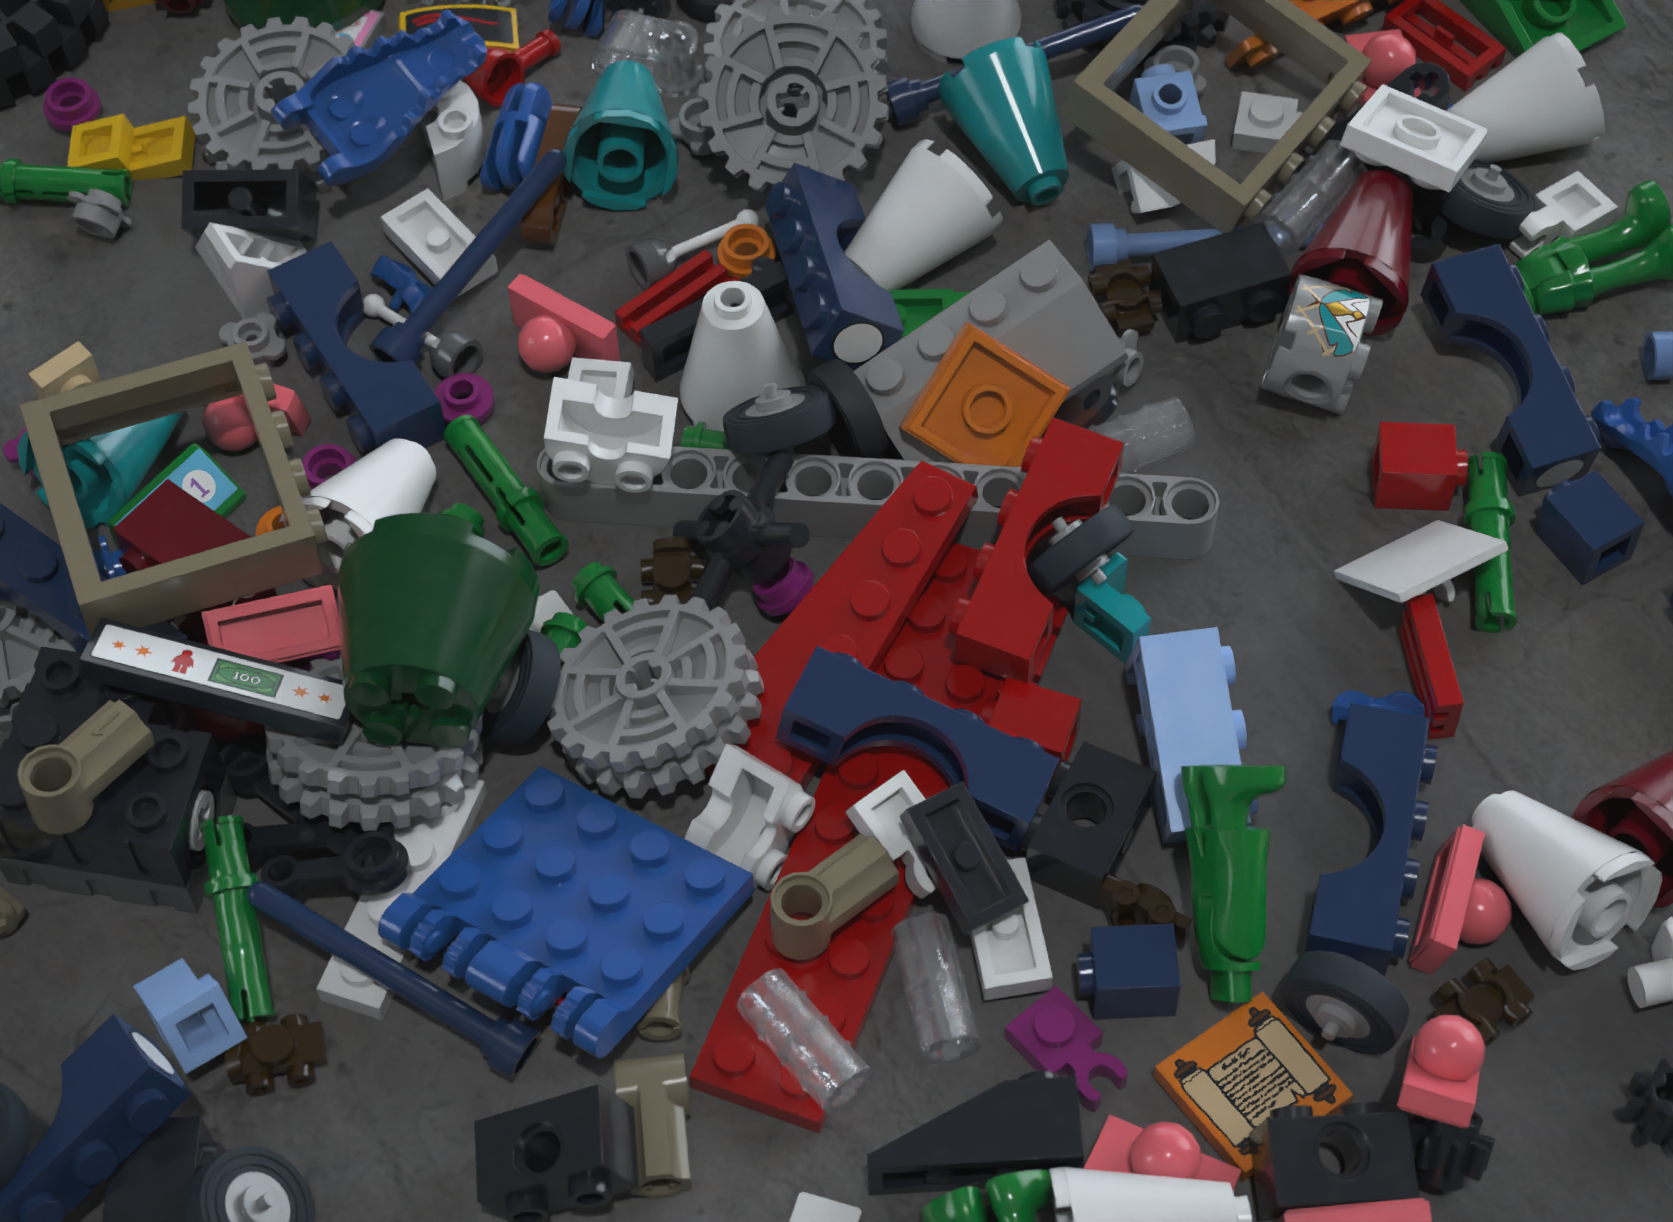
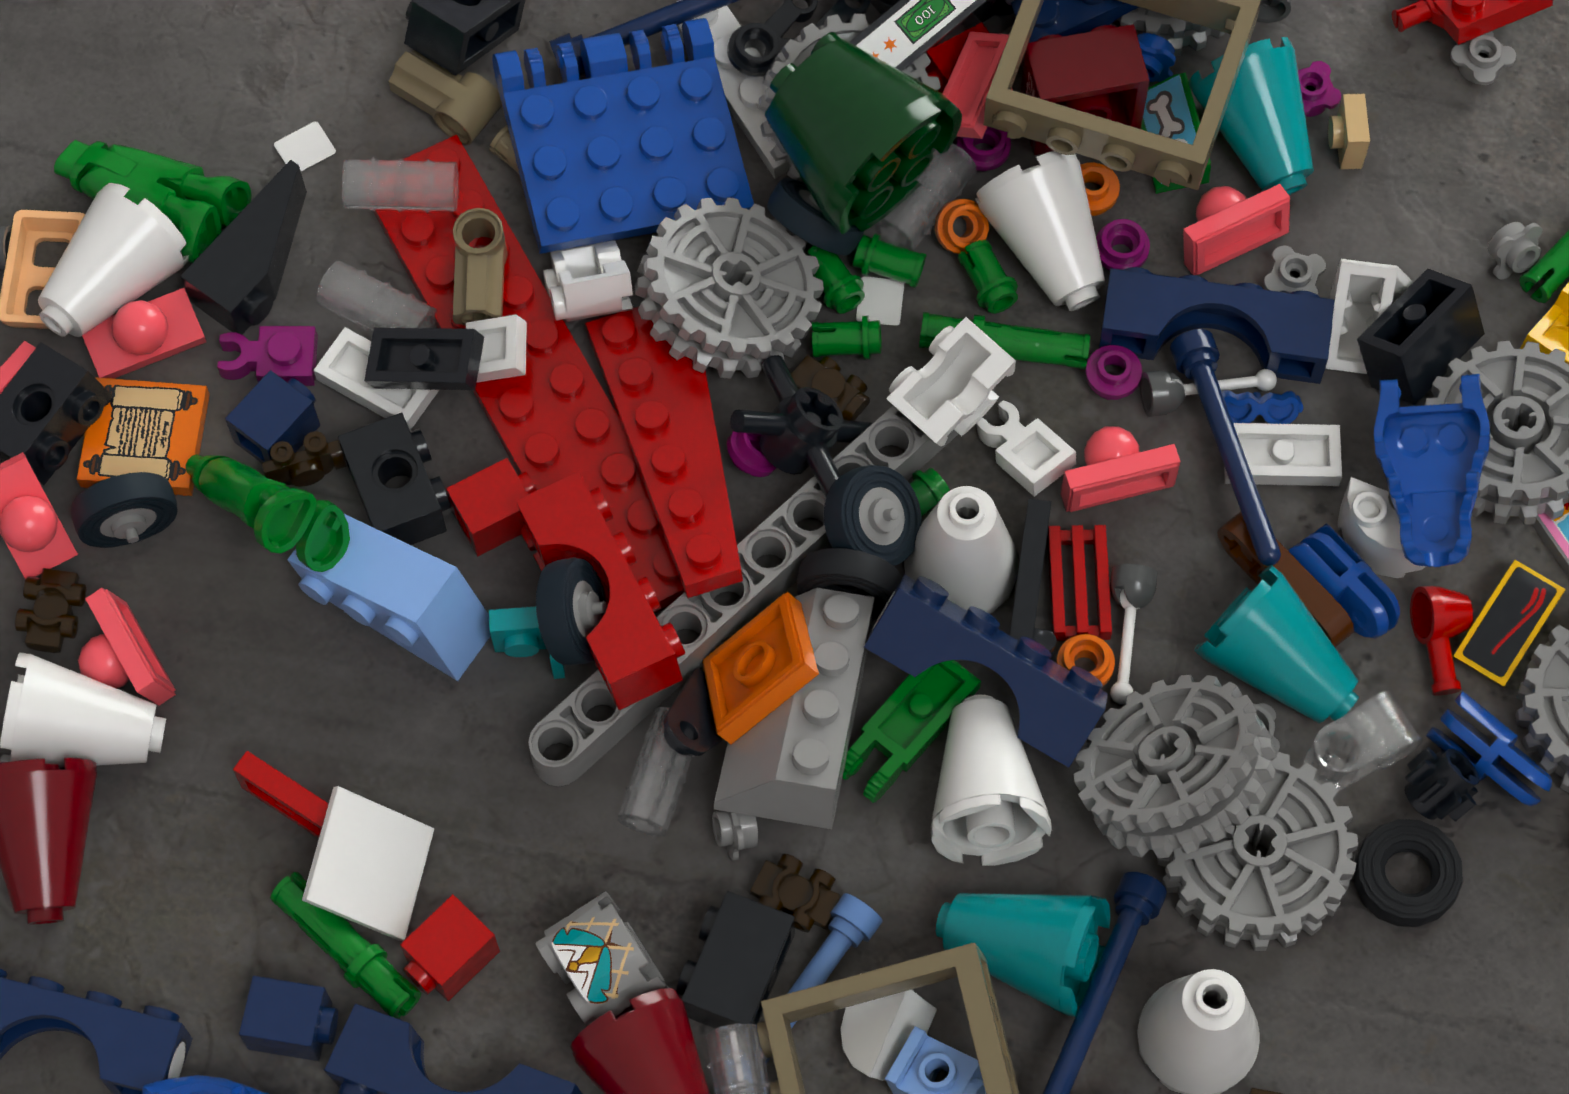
camera: 130 degrees right, 10 degrees up
(849, 708) = (592, 371): dark blue arch -> none
(1380, 774) = (253, 692): dark blue arch -> none
(1396, 701) = (317, 732): blue piece -> none

